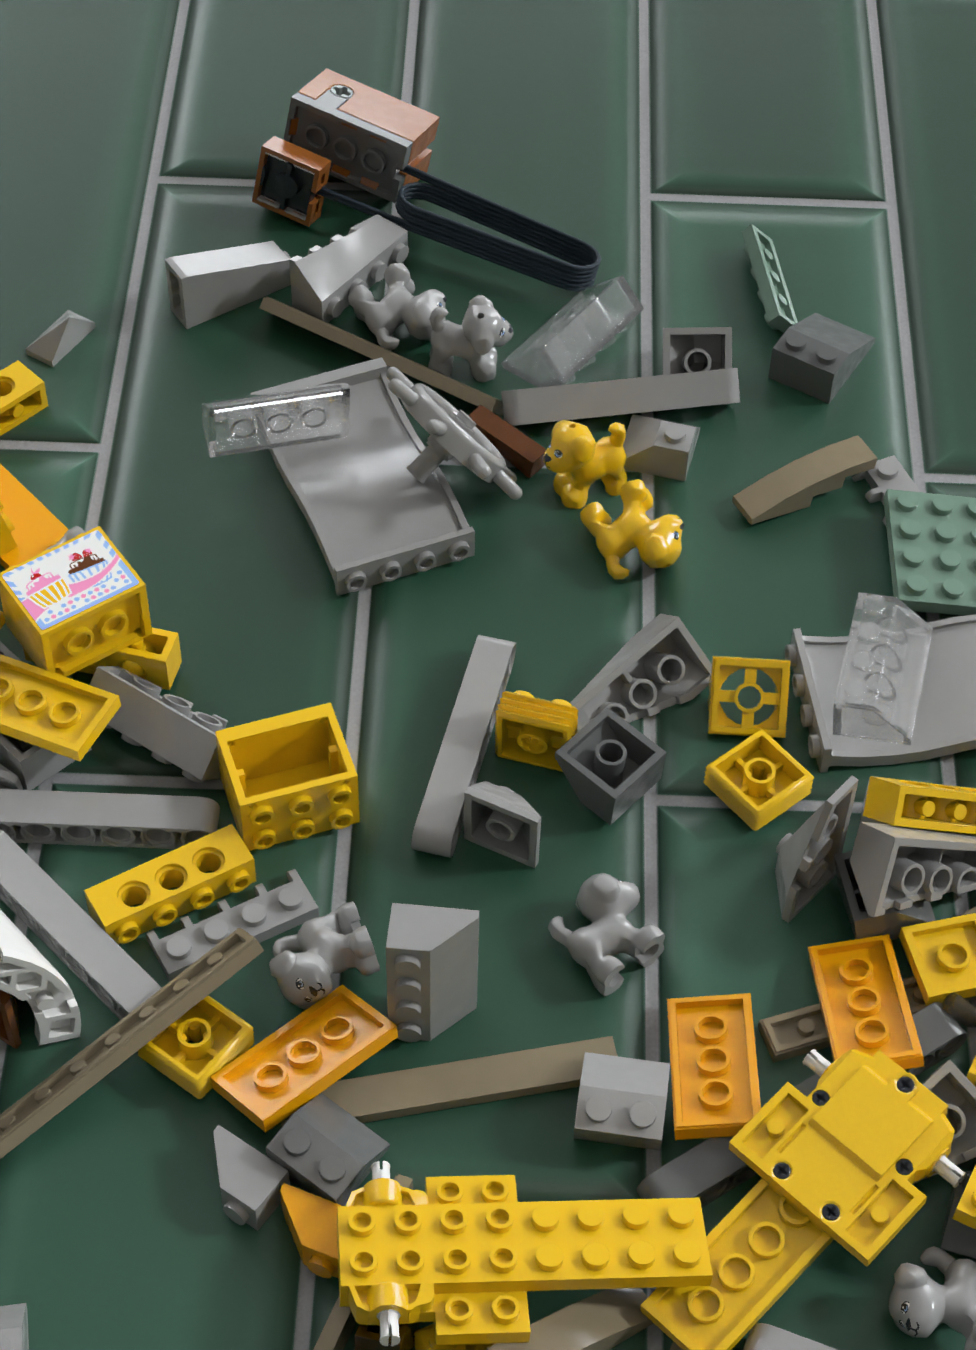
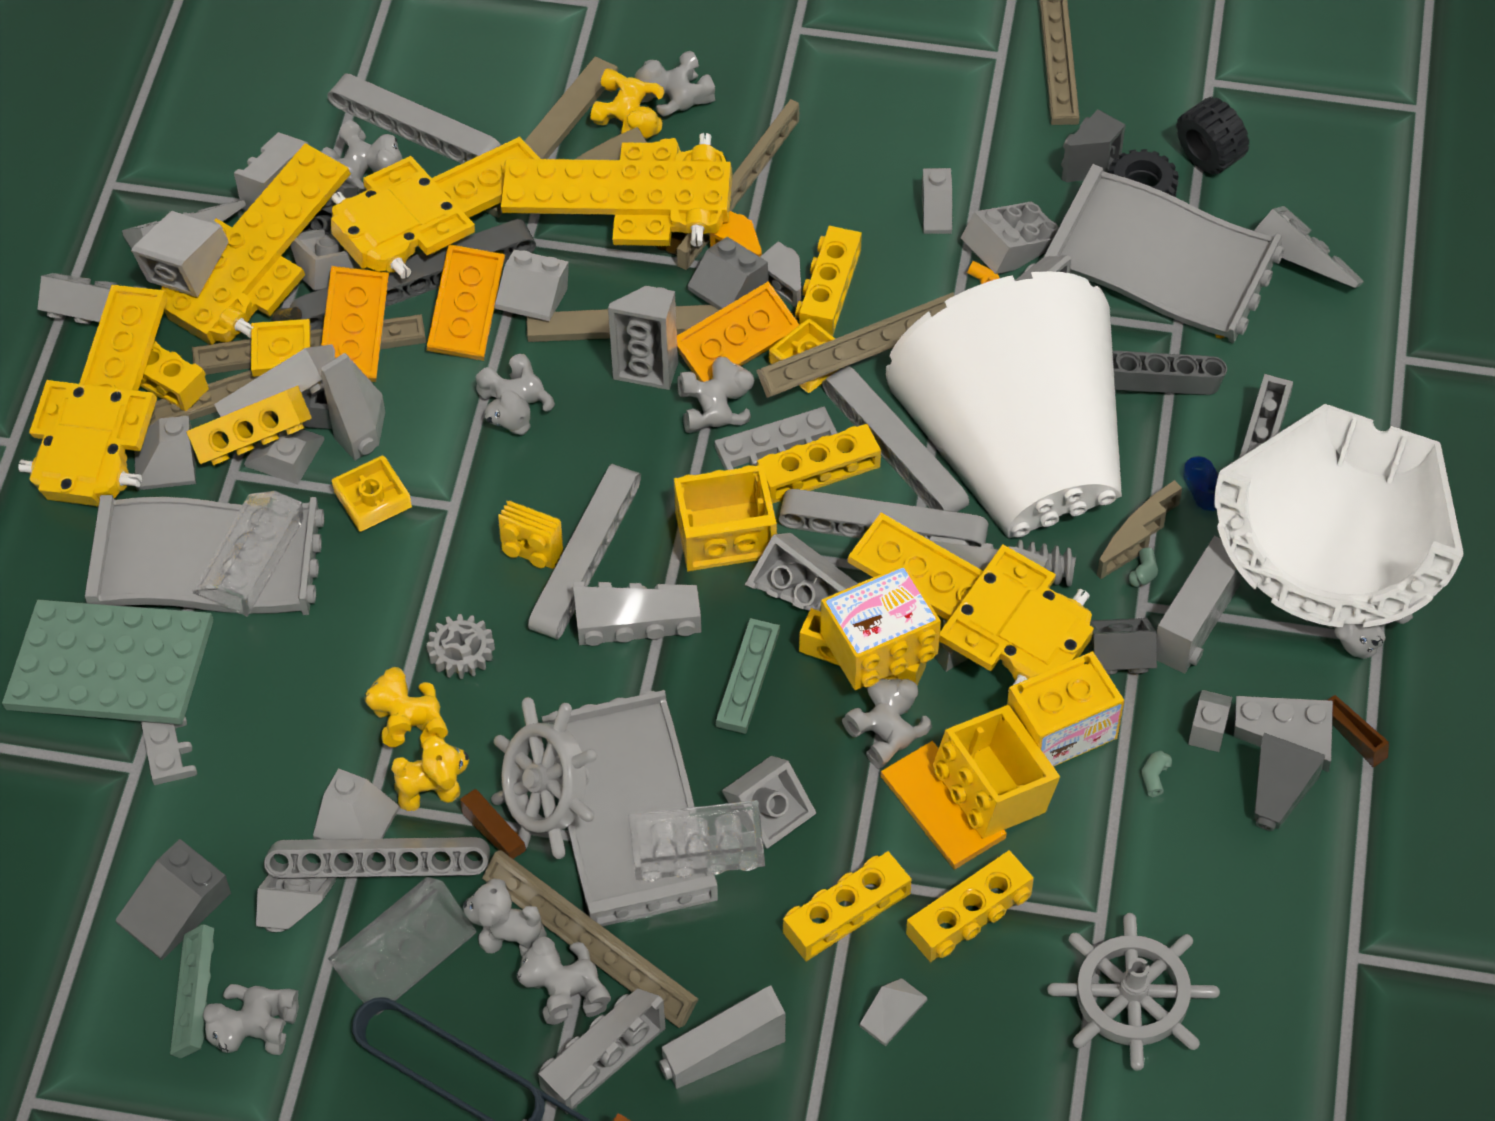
camera: 170 degrees left, 5 degrees up
(110, 406) = (812, 938): none -> yellow brick
(165, 1241) = (830, 277): none -> yellow brick
(206, 494) = (779, 794): none -> light grey slope
(240, 622) = (747, 676): none -> sand green plate
(386, 669) = (635, 612): none -> light grey wedge
(502, 822) = (572, 474): light grey slope -> none
(592, 615) = (460, 646): none -> light grey gear
(610, 765) = (476, 500): dark grey slope -> none
(648, 674) = (420, 598): light grey wedge -> none
(717, 245) = (228, 1027): none -> light grey animal
(723, 667) = (358, 552): yellow piece -> none
(797, 482) = (242, 752): dark tan slope -> none

